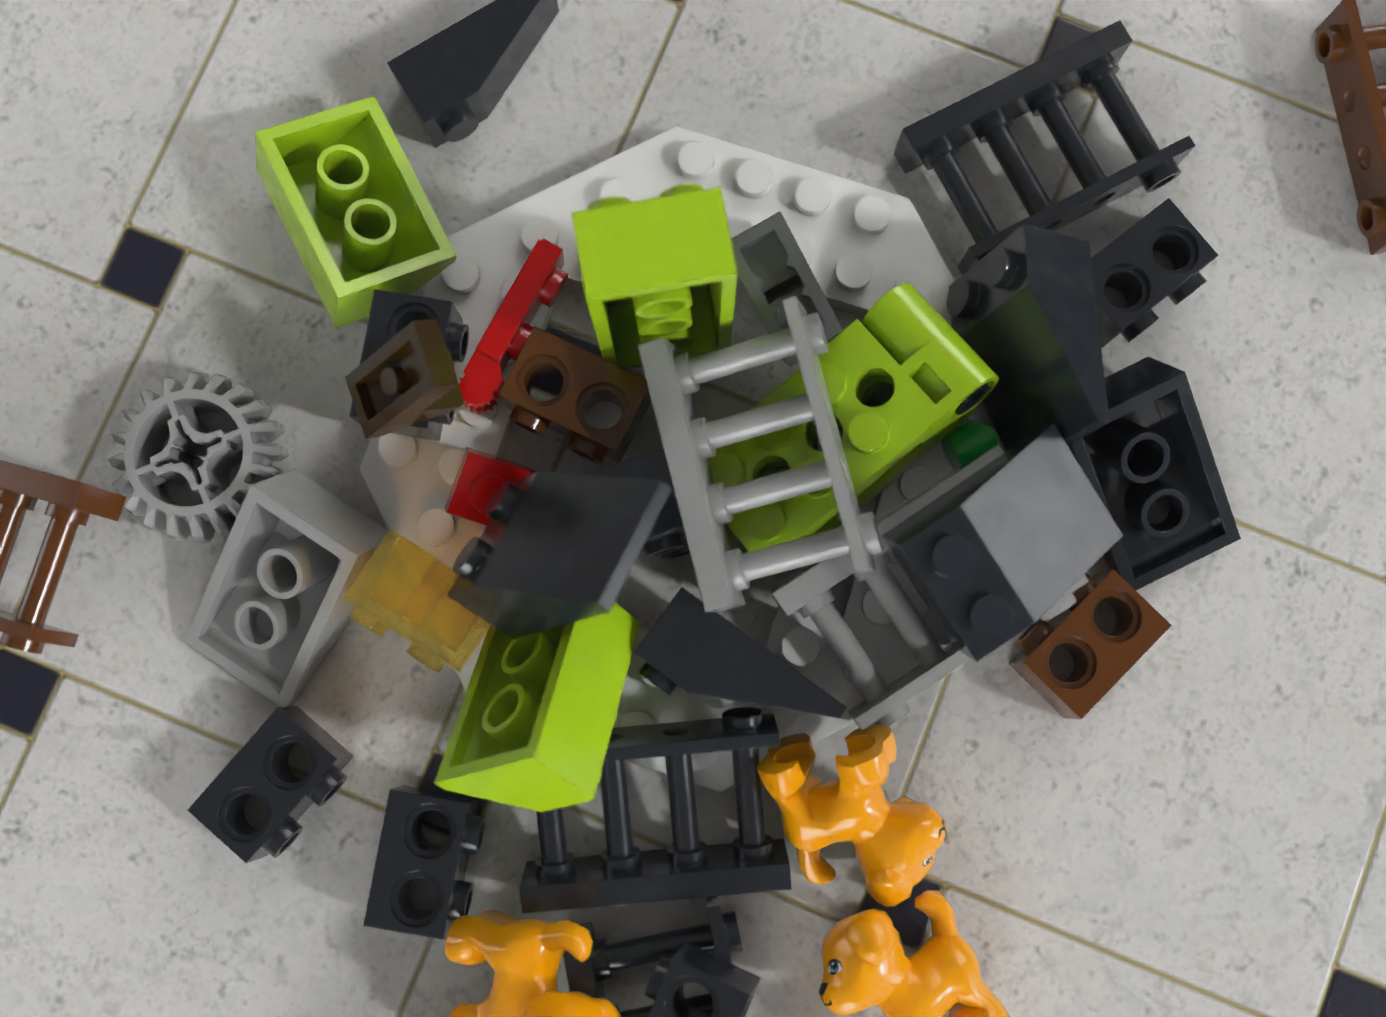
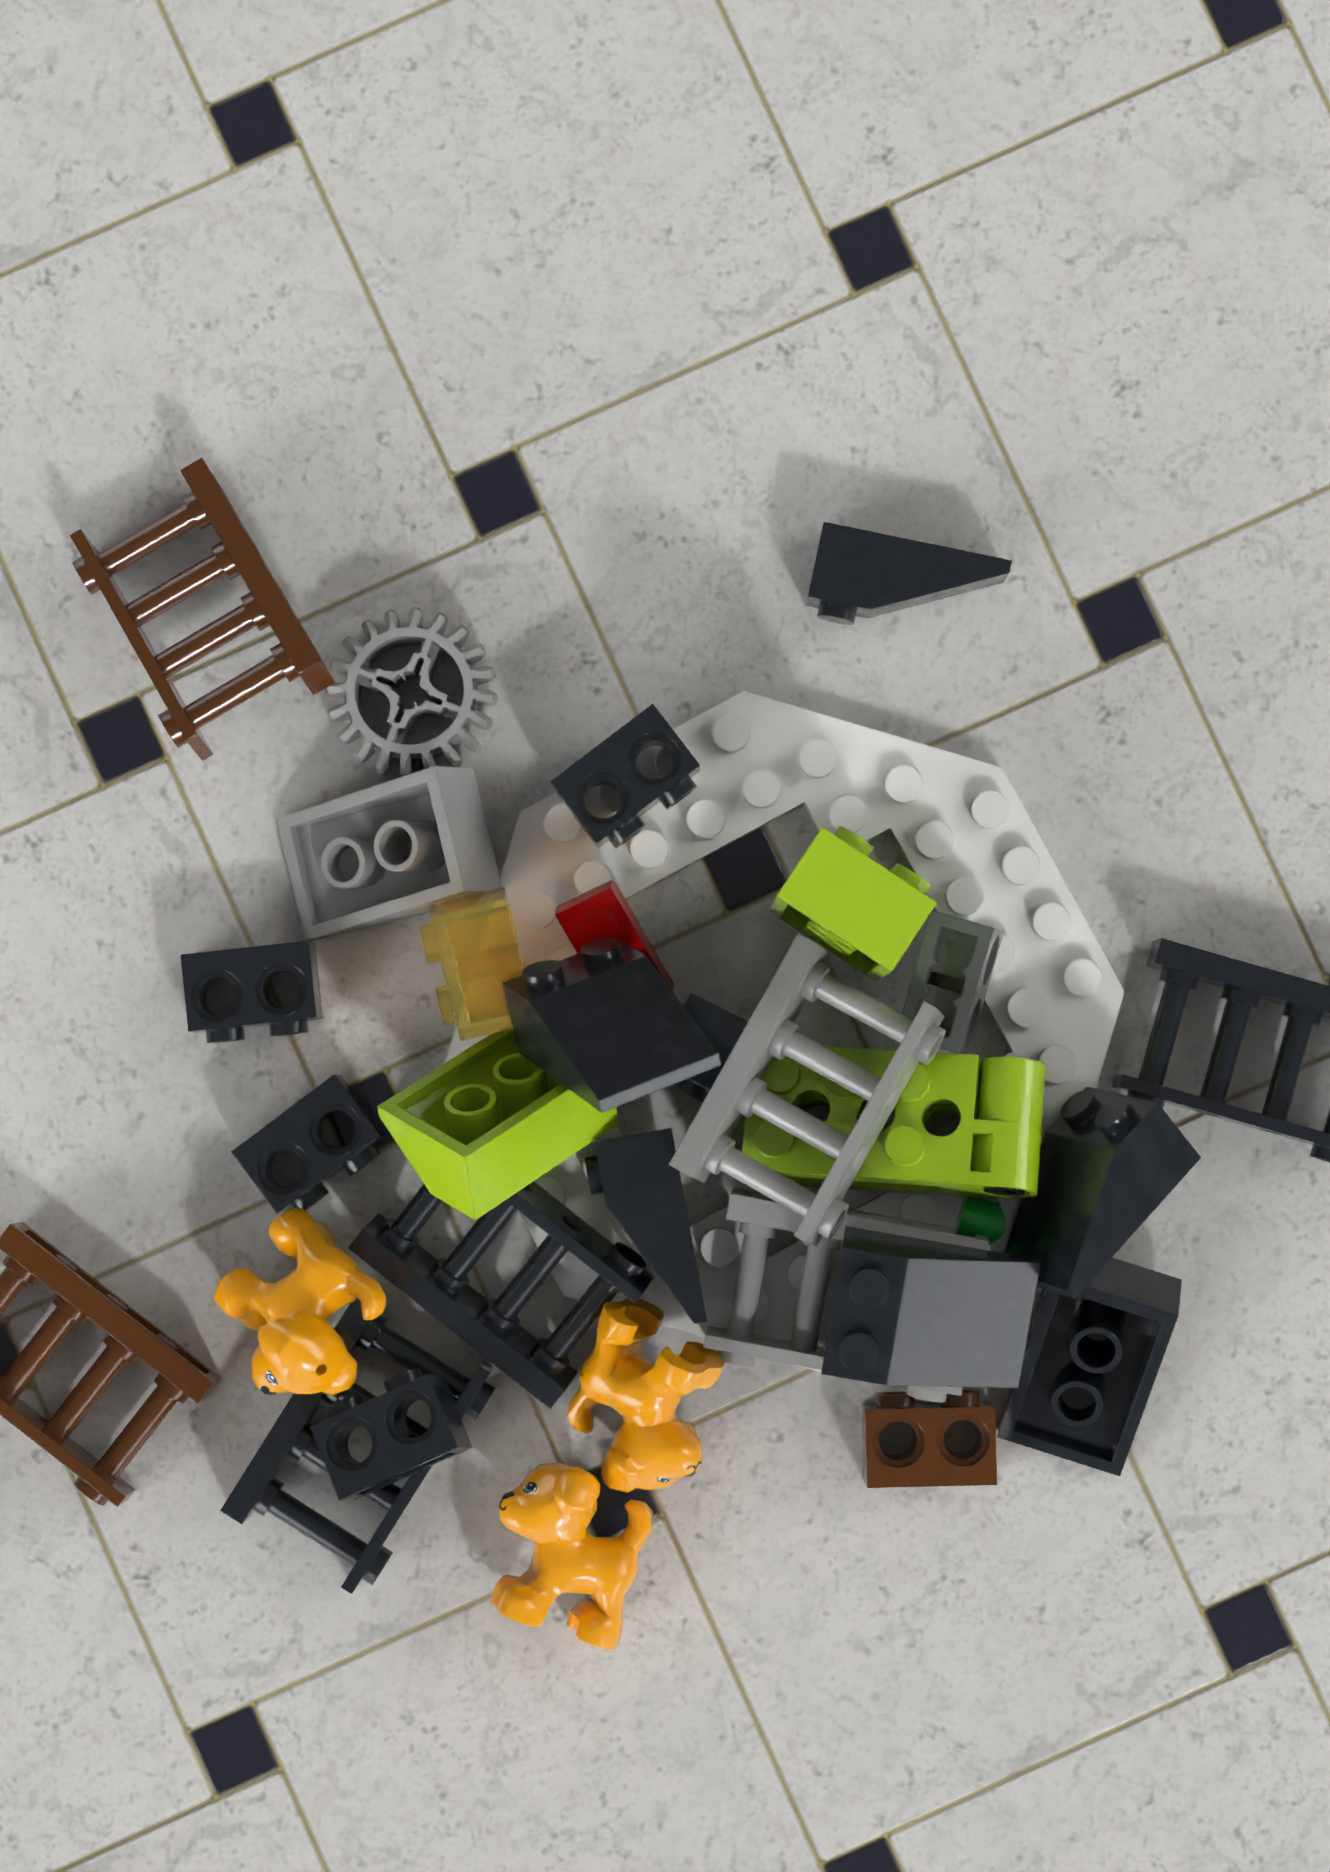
camera: 45 degrees right, 5 degrees up
(351, 206) = (695, 611): lime slope -> none
(405, 381) = (609, 801): dark brown slope -> none
(536, 284) = (724, 821): red hinge -> none
(585, 383) = (742, 910): reddish brown brick -> none
(1132, 270) = (1237, 1199): black brick -> none

